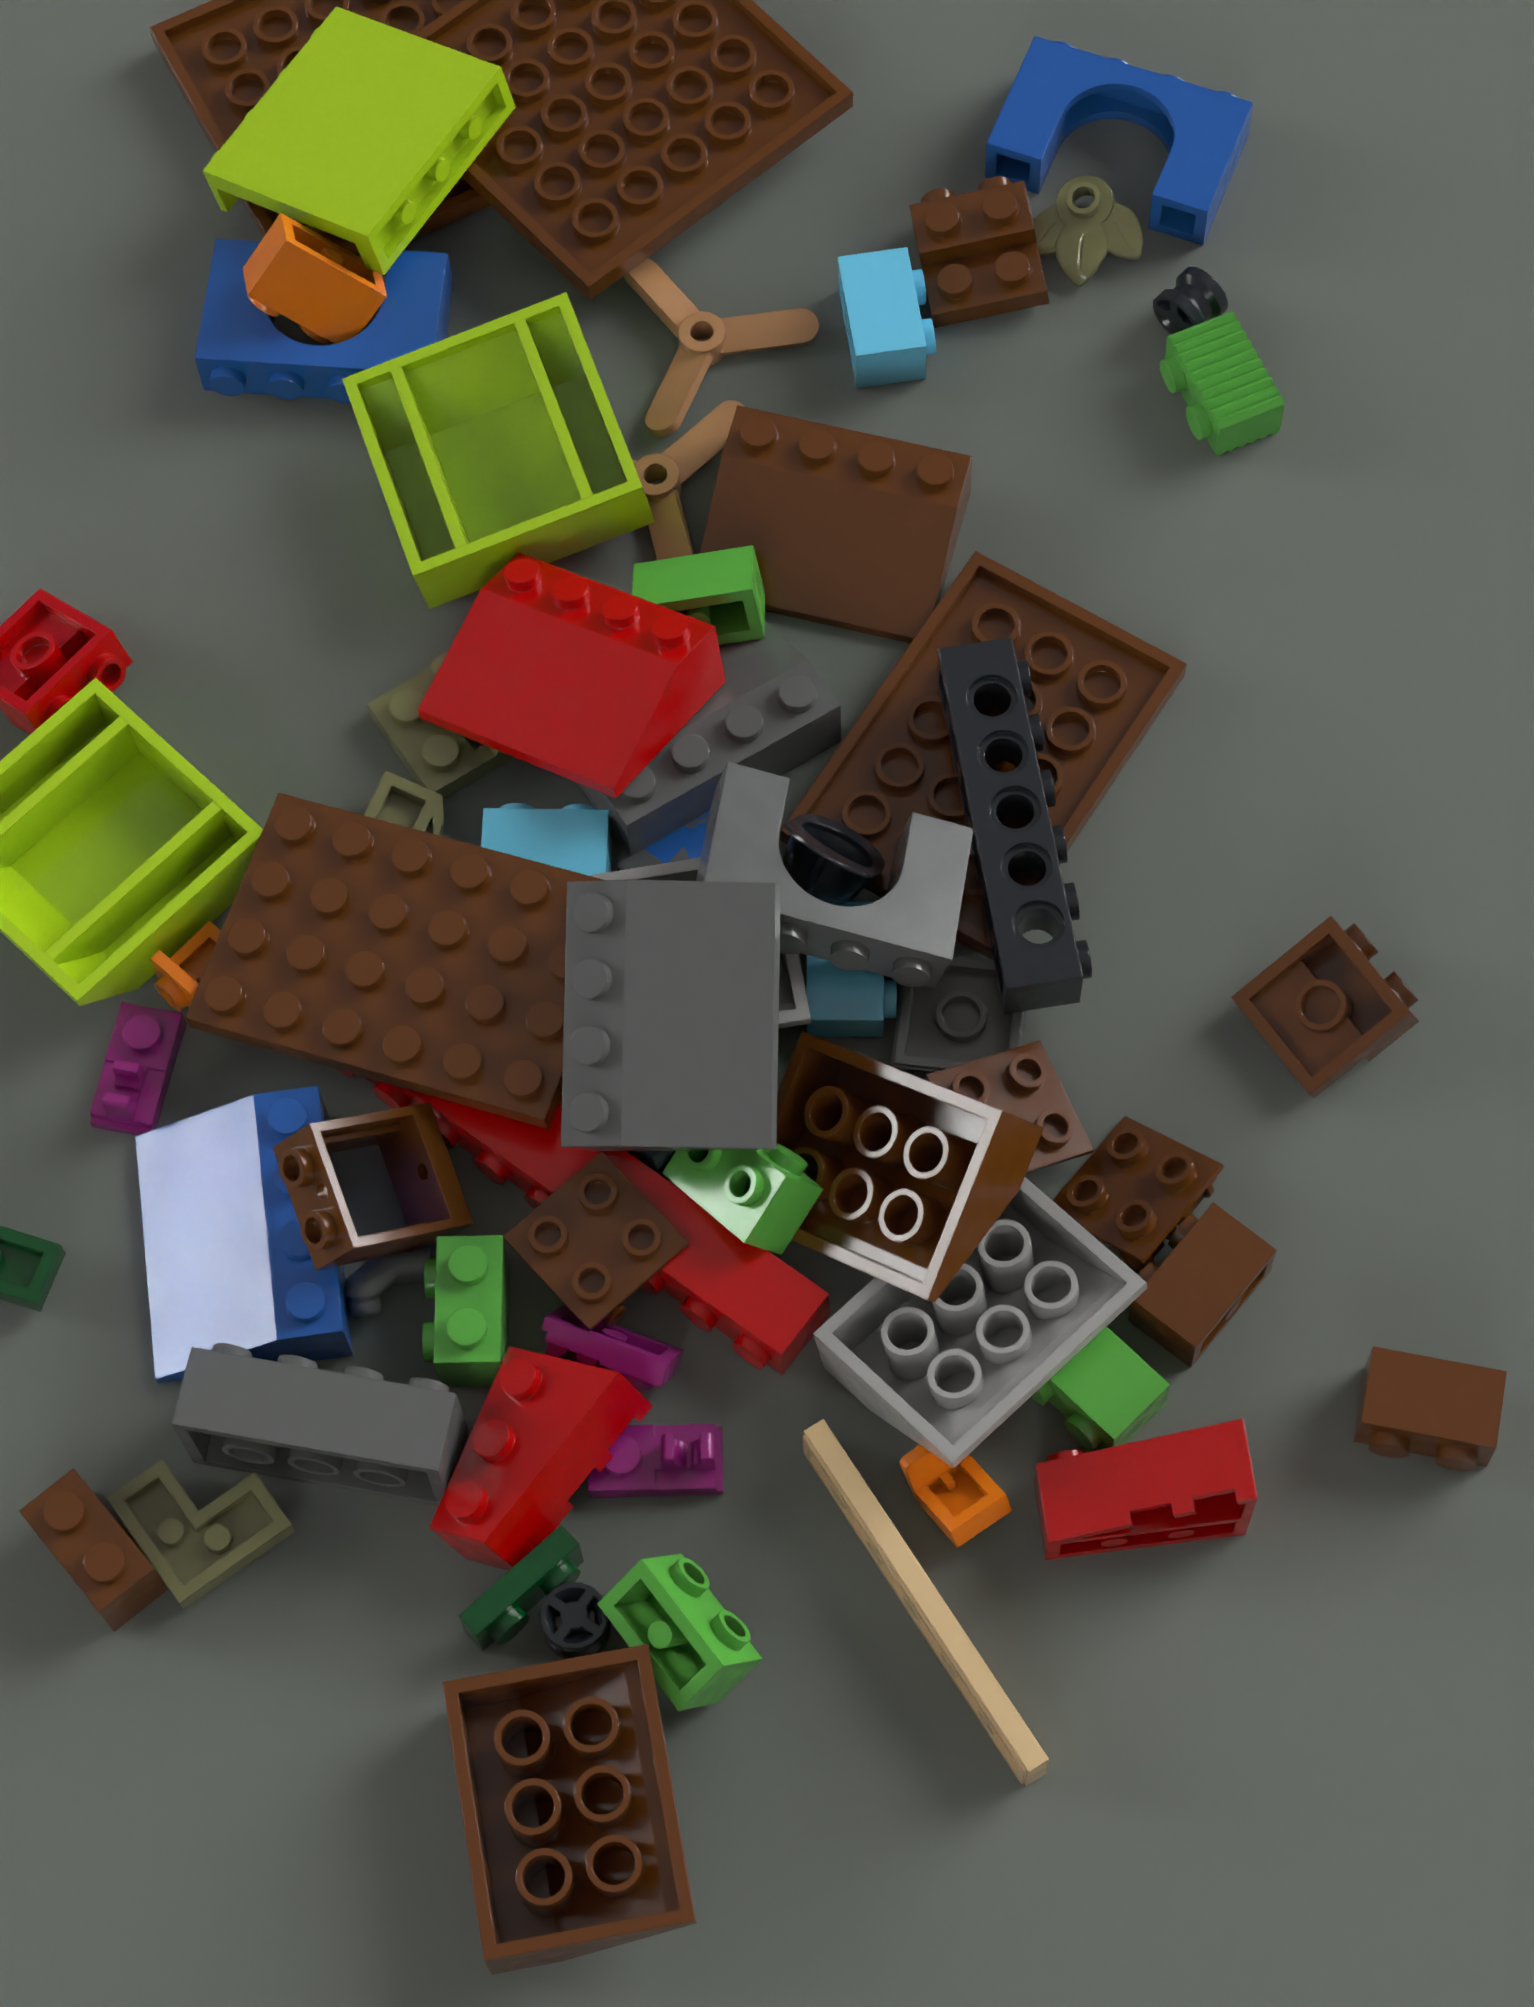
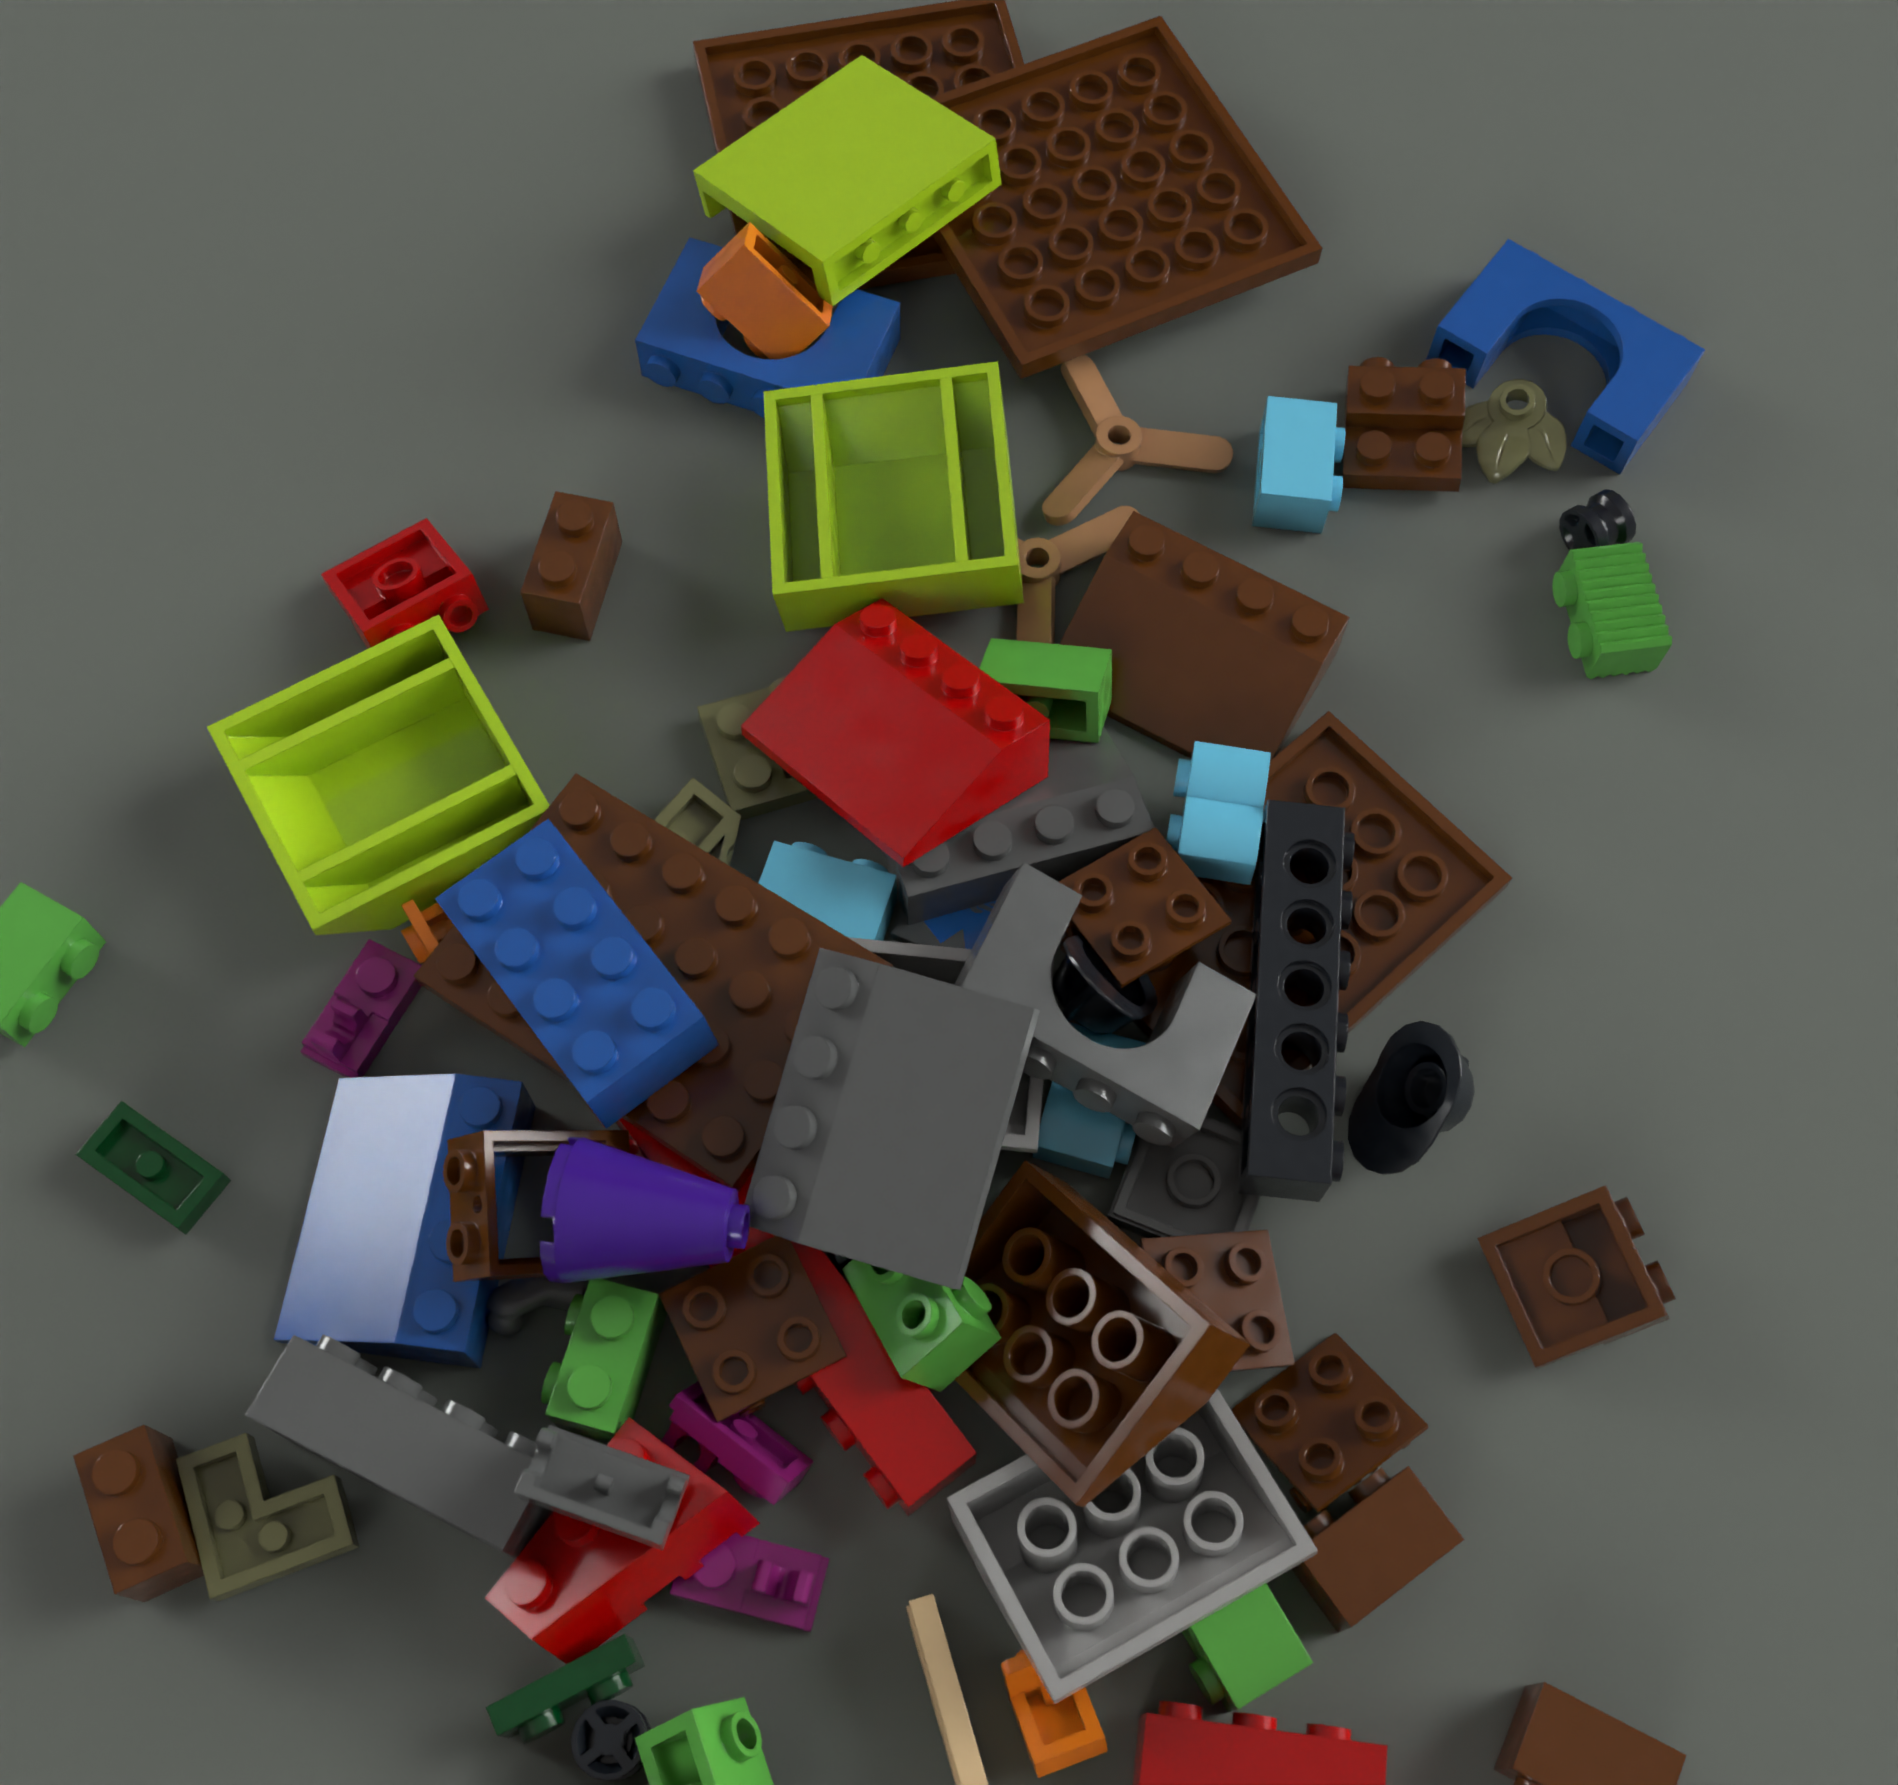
camera: 10 degrees right, 0 degrees up
(202, 598) = (572, 566): none -> reddish brown brick
(346, 966) = (578, 972): none -> blue brick
(469, 1161) = (633, 1215): none -> dark purple cone
(511, 1395) = (603, 1486): none -> dark grey hinge
(847, 777) = (1141, 907): none -> reddish brown hinge
(897, 673) = (1220, 811): none -> medium azure brick
(1140, 886) = (1410, 1098): none -> black piece

